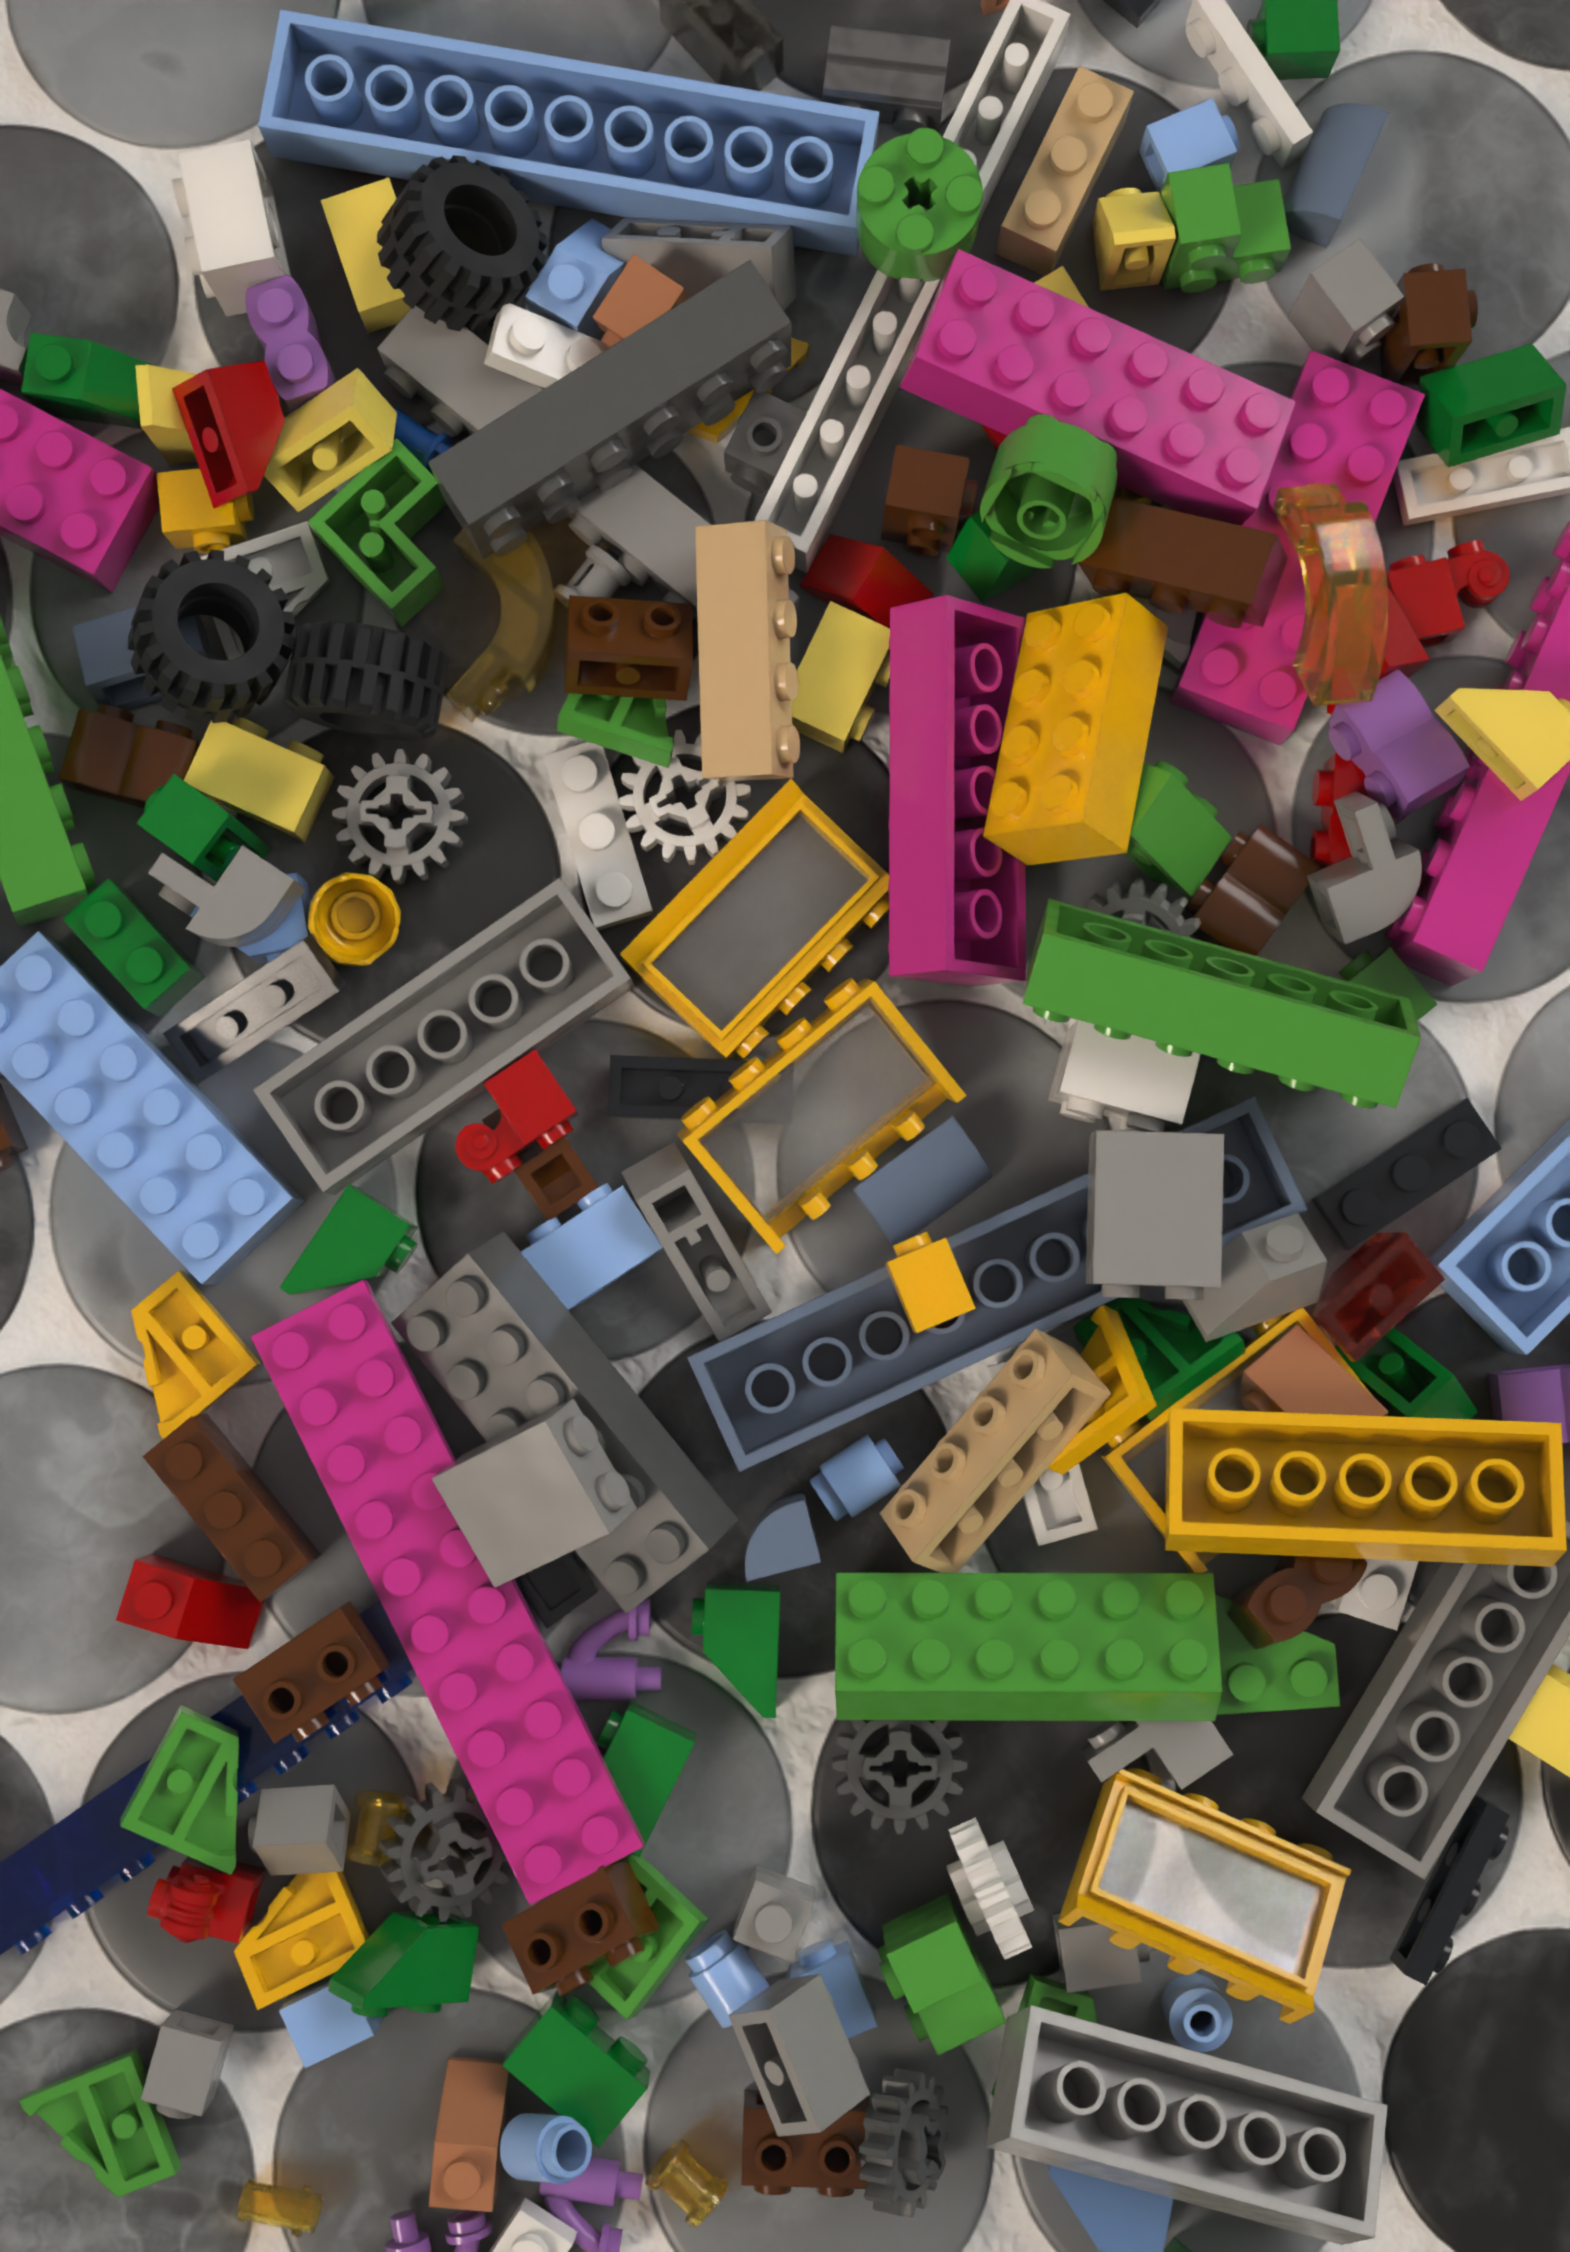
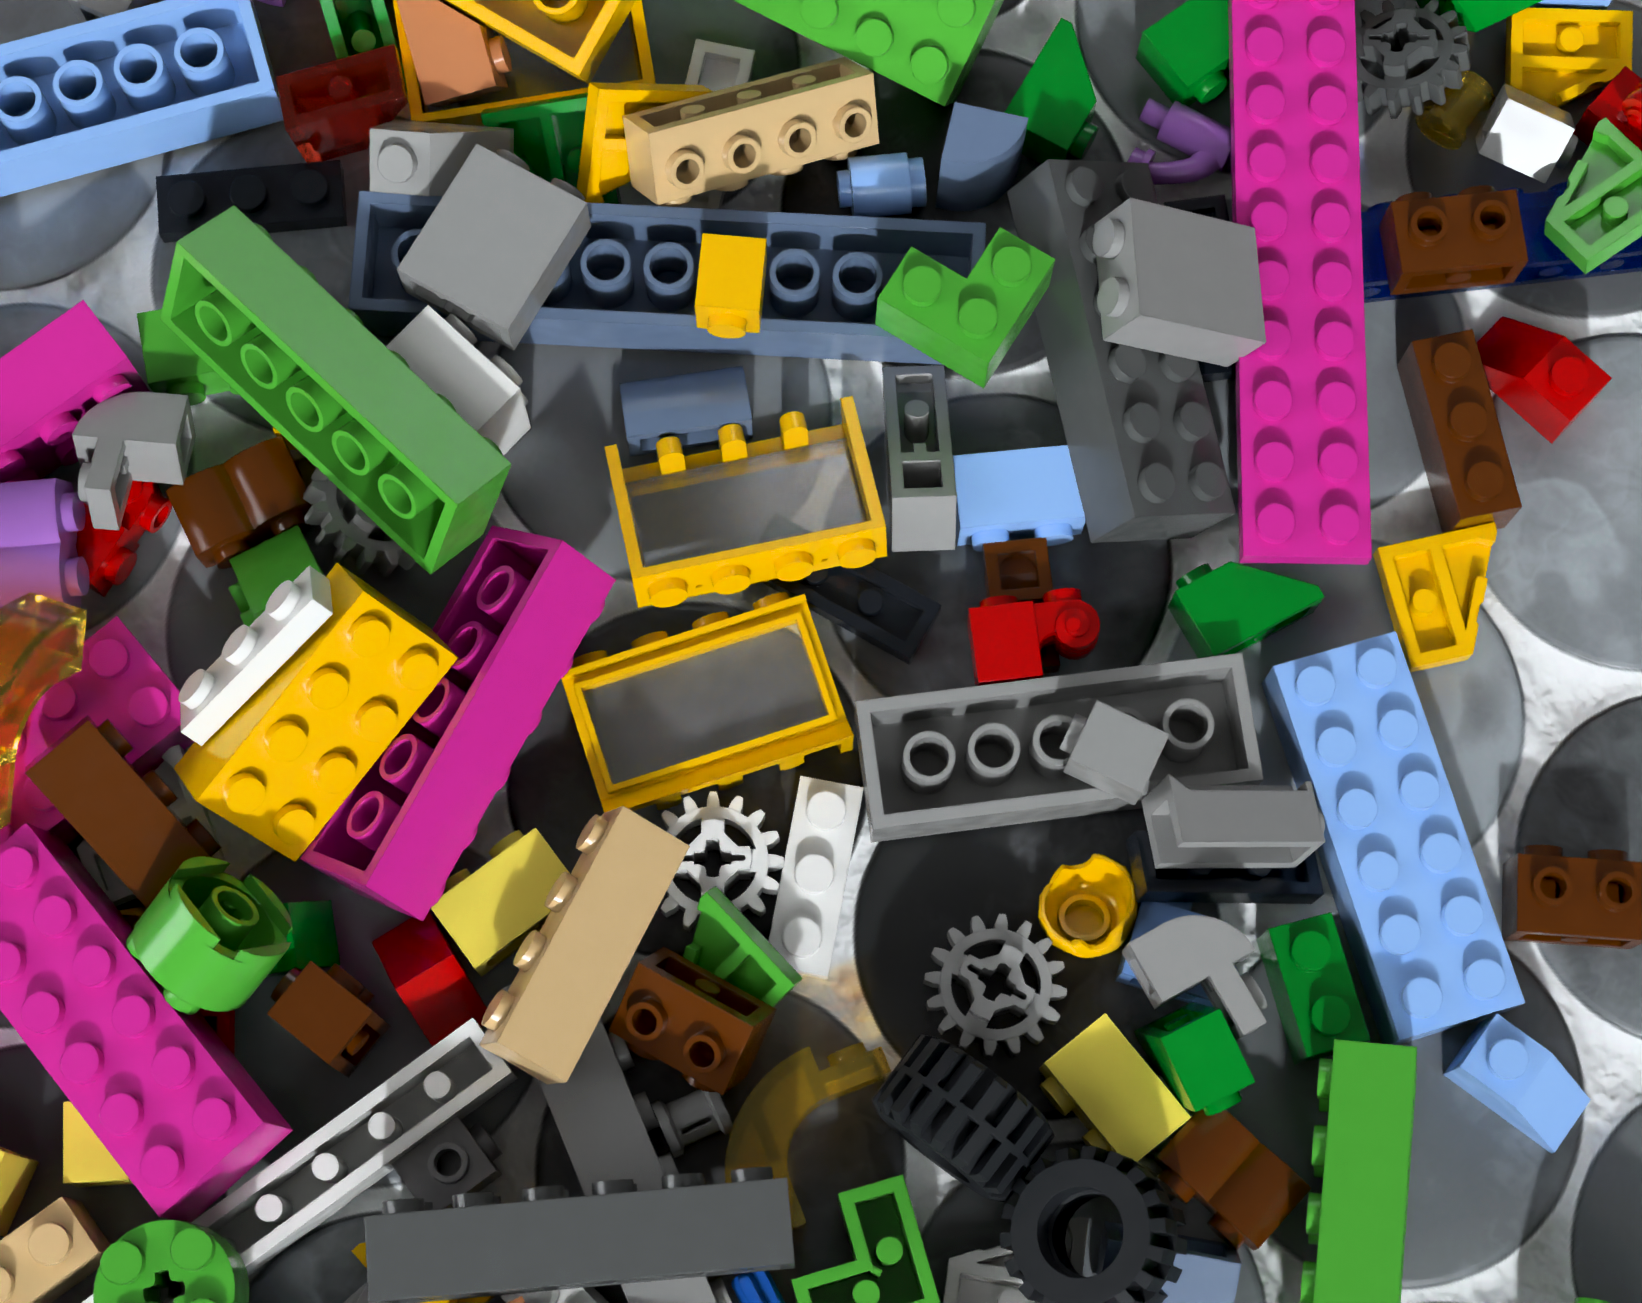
camera: 155 degrees left, 10 degrees down
(260, 1038) = (1231, 825): none -> light grey window
(386, 1036) = (1113, 751): none -> light grey brick
(699, 1357) = (969, 319): none -> bright green brick
(1148, 739) = (254, 654): none -> white plate

